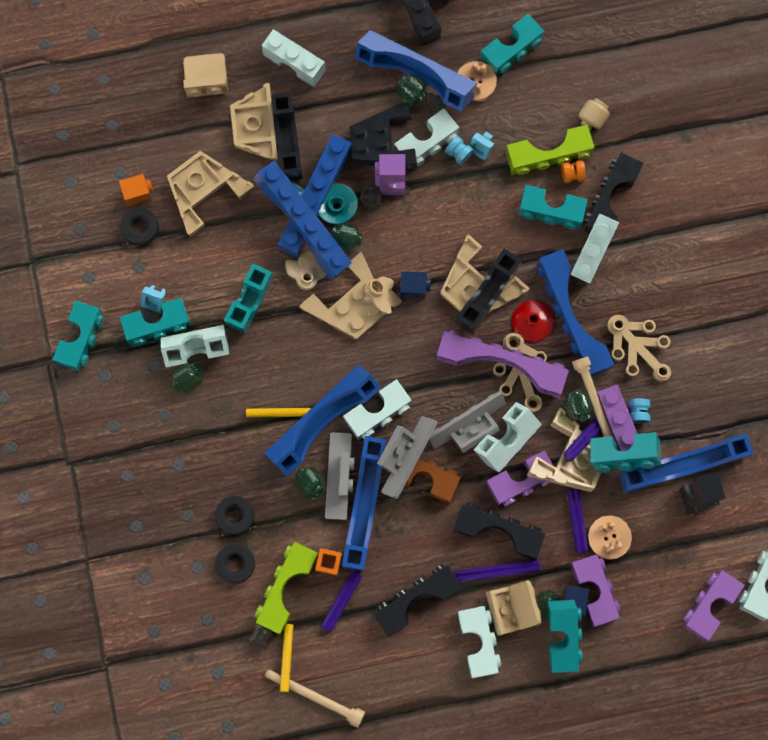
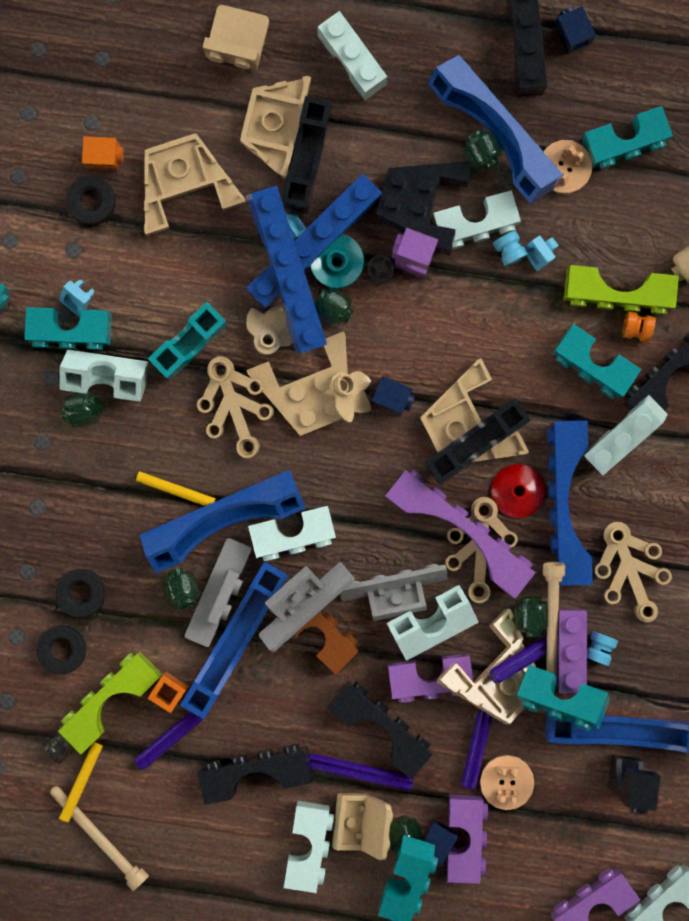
camera: 20 degrees right, 10 degrees up
(297, 332) = (232, 402): none -> tan plant

